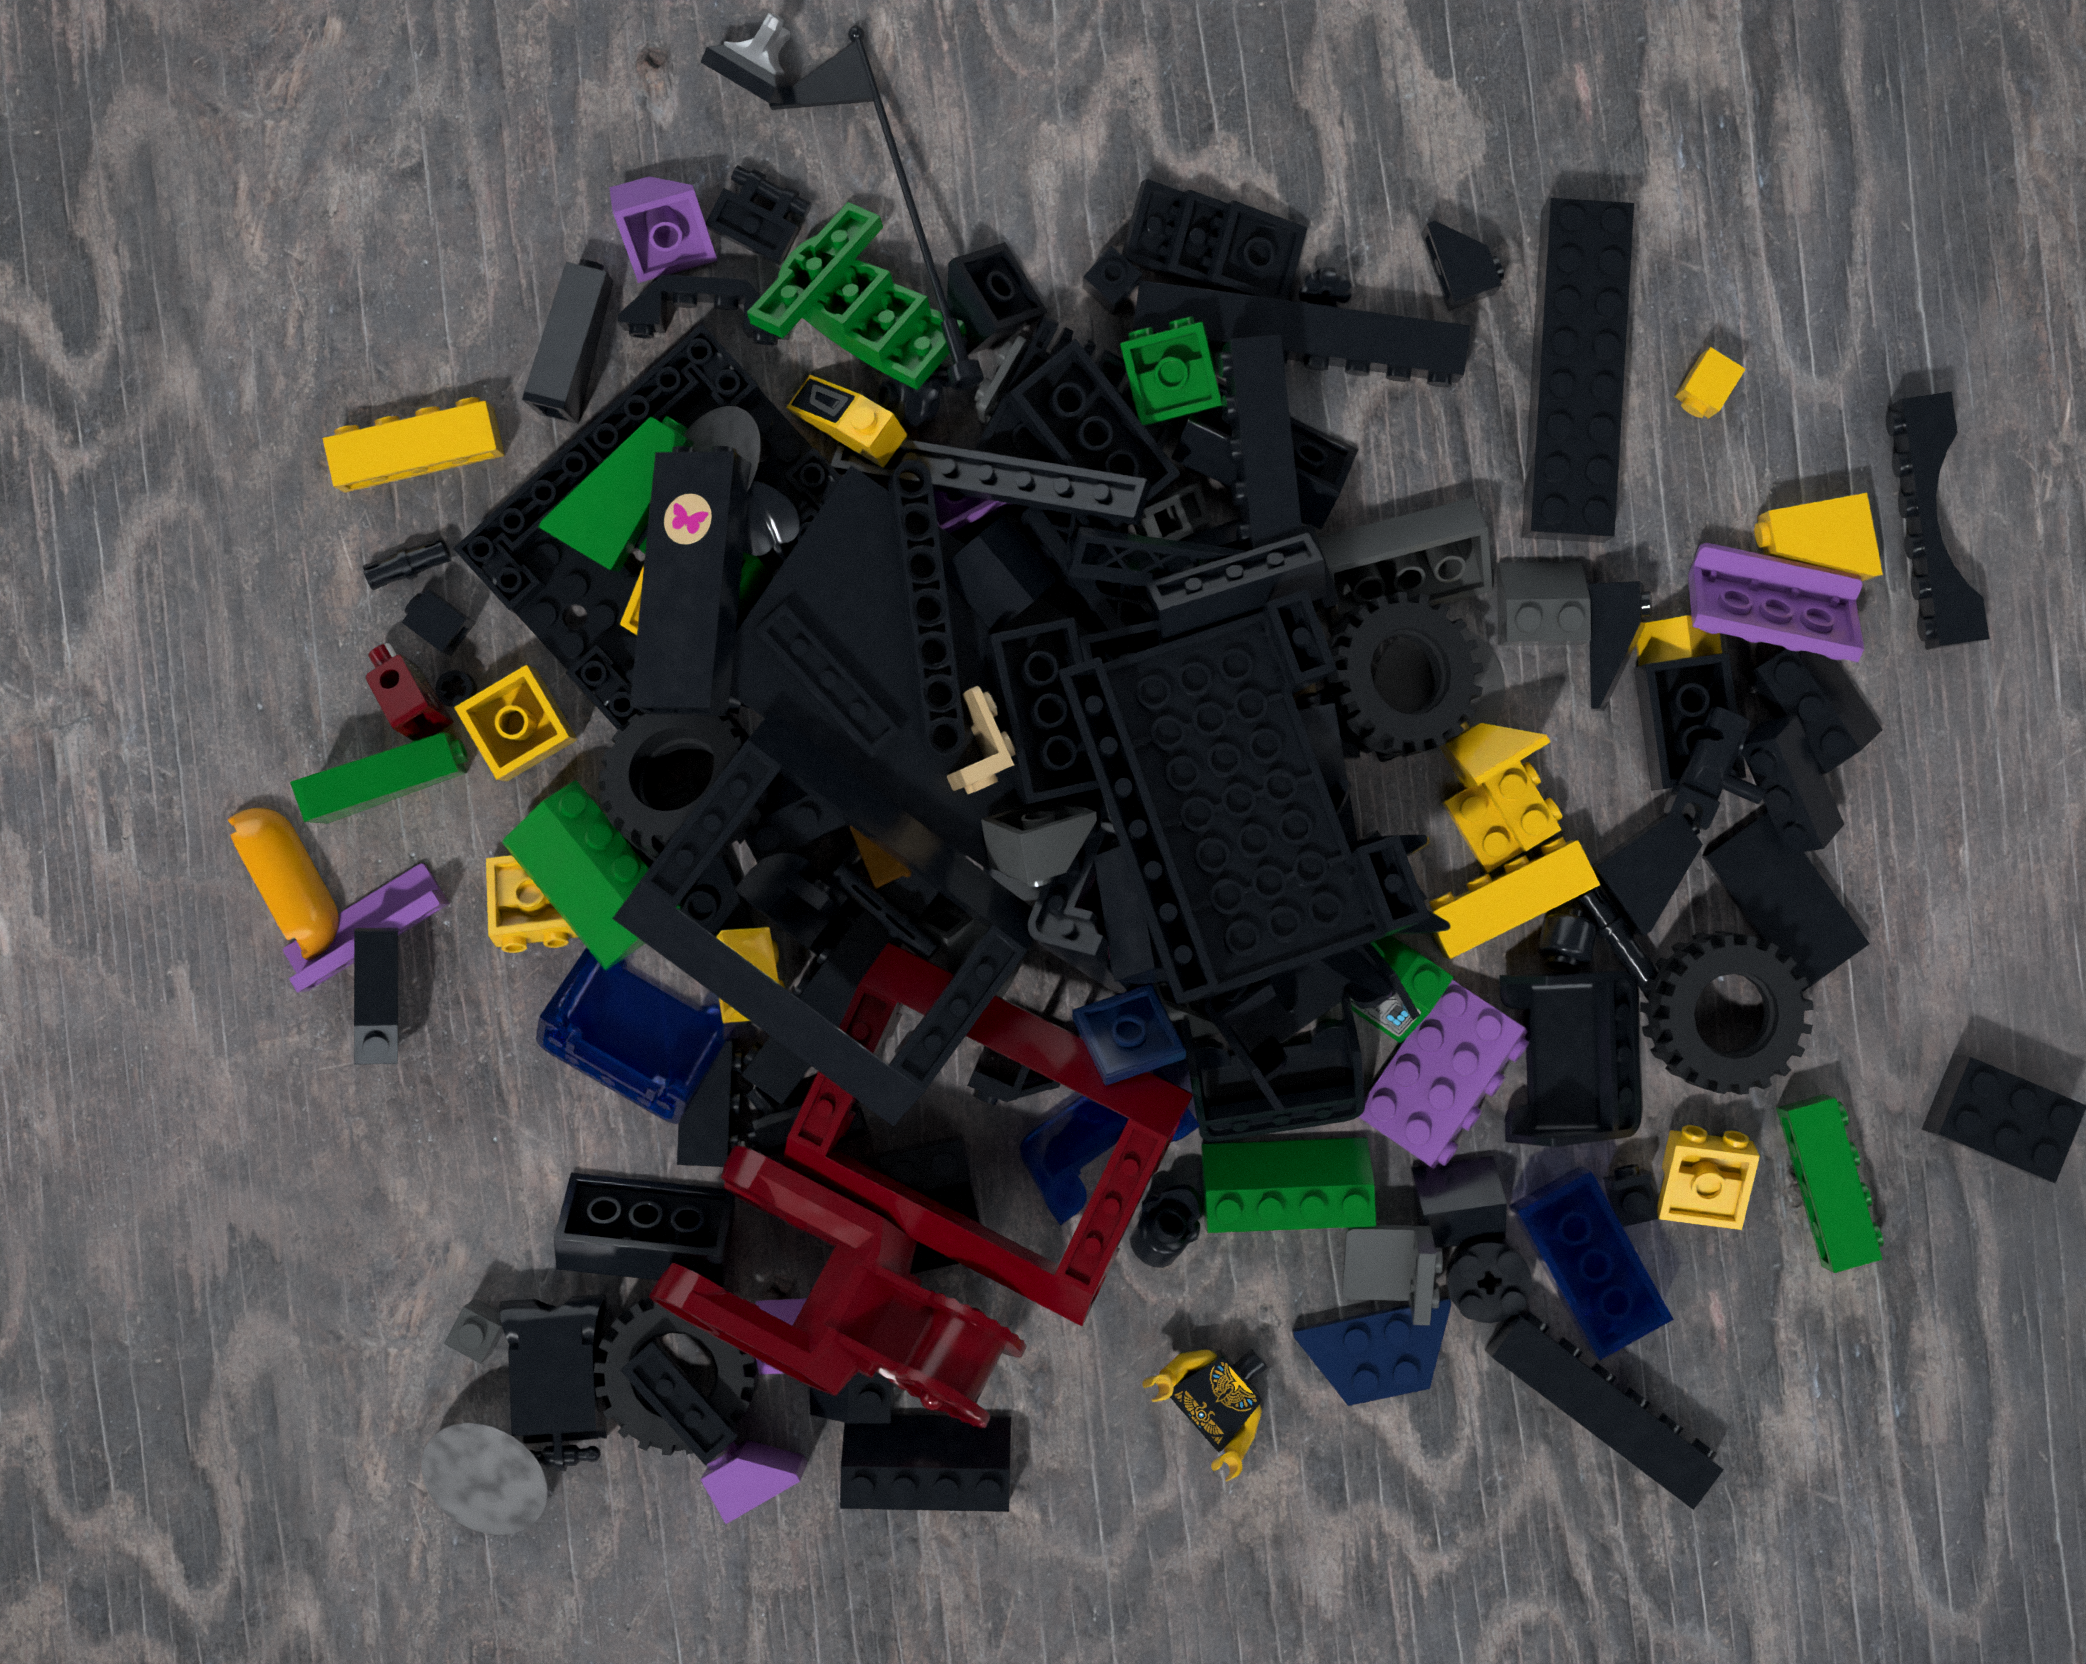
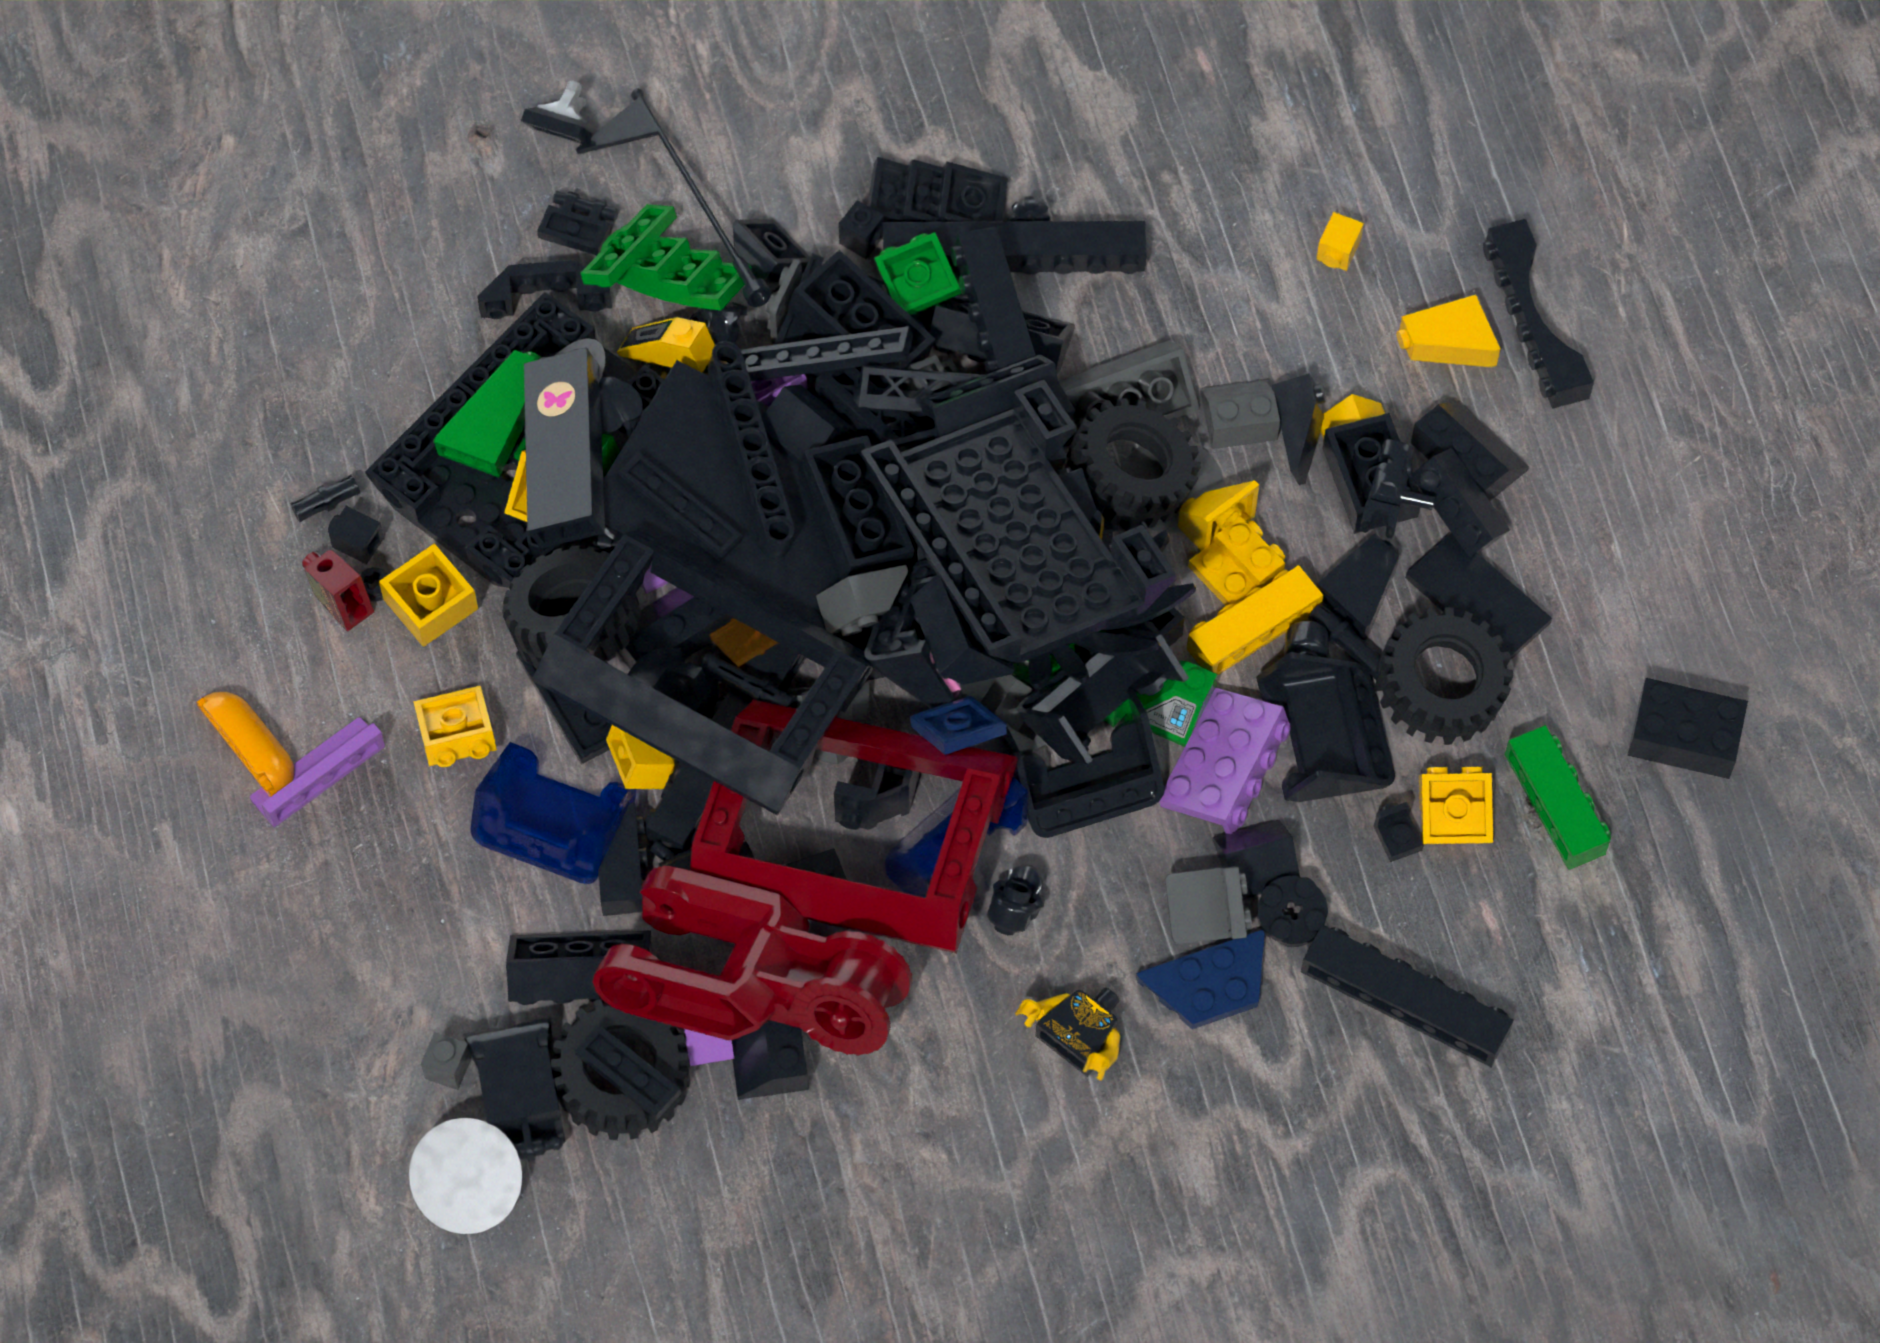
camera: 10 degrees left, 25 degrees down
(375, 996) = (335, 807): black slope -> none
(379, 778) = (320, 650): green slope -> none
(413, 445) = (323, 413): yellow brick -> none
(569, 342) = (440, 326): black slope -> none
(580, 868) = (499, 692): green slope -> none
(661, 226) = (503, 236): medium lavender slope -> none
(749, 1476) = (695, 1136): medium lavender slope -> none
(926, 1464) = (843, 1119): black slope -> none
(995, 746) = (813, 534): tan bracket -> none
(1288, 1185) = (1110, 862): green slope -> none
(1461, 265) = (1131, 186): black slope -> none
(1578, 370) = (1235, 247): black brick -> none
(1591, 1262) = (1371, 878): clear blue brick -> none
(1776, 601) = (1421, 376): medium lavender bracket -> none

